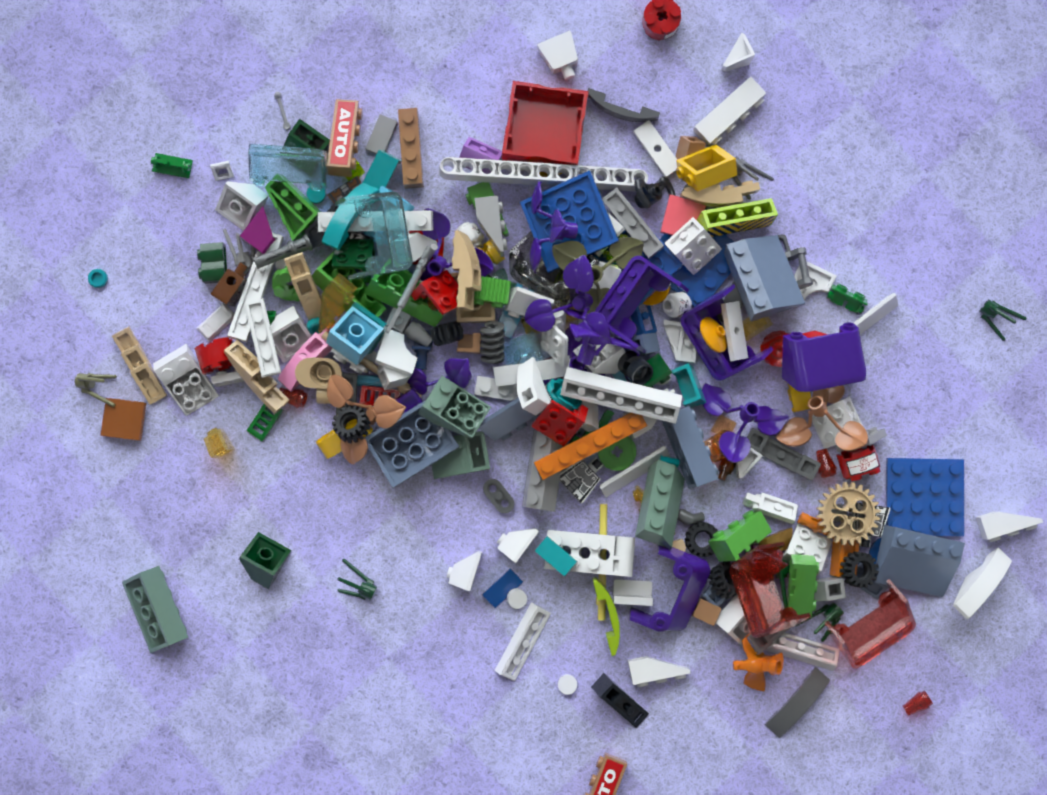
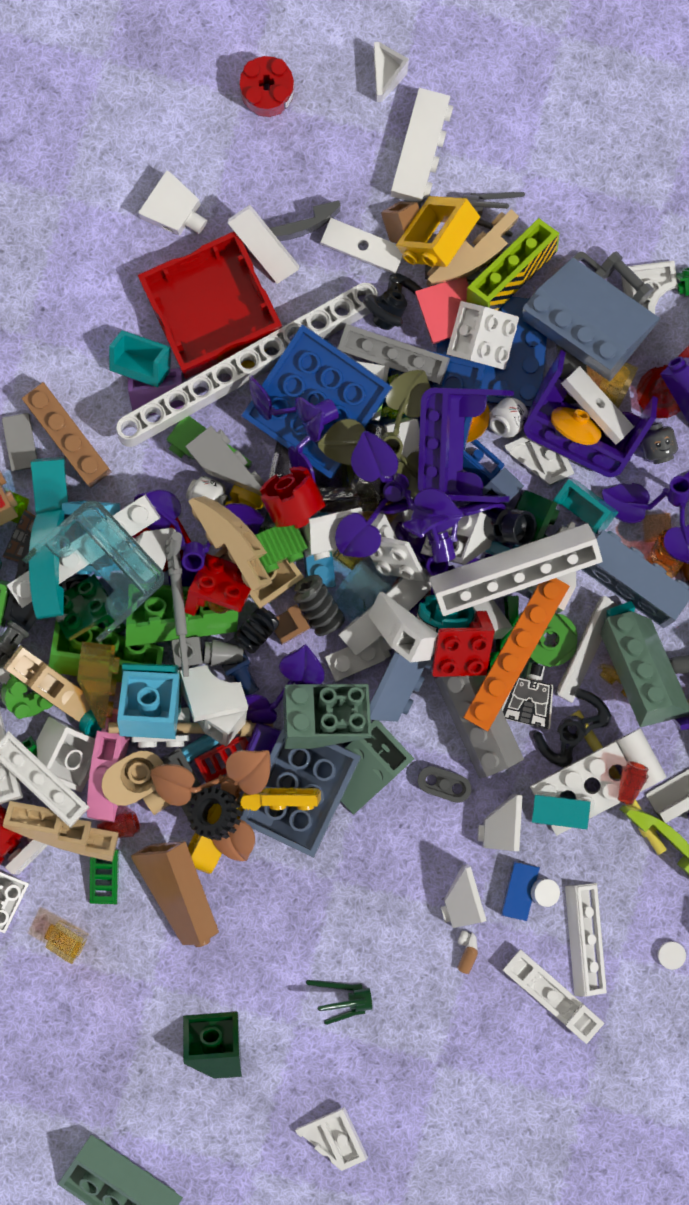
camera: 40 degrees left, 0 degrees up
(299, 661) = (335, 1138): none -> white wing
(302, 456) = (178, 890): none -> medium nougat slope
(395, 440) = (281, 797): none -> yellow hinge
(450, 604) = (470, 952): none -> arm
(481, 662) = (553, 996): none -> white slope
(482, 130) = (139, 358): none -> teal panel
(516, 268) = (292, 498): none -> red brick
(588, 514) = (565, 757): none -> black piece
(598, 109) = (263, 244): none -> white tile
(609, 565) = (632, 781): none -> clear red cone
(757, 377) = (659, 443): none -> dark grey head

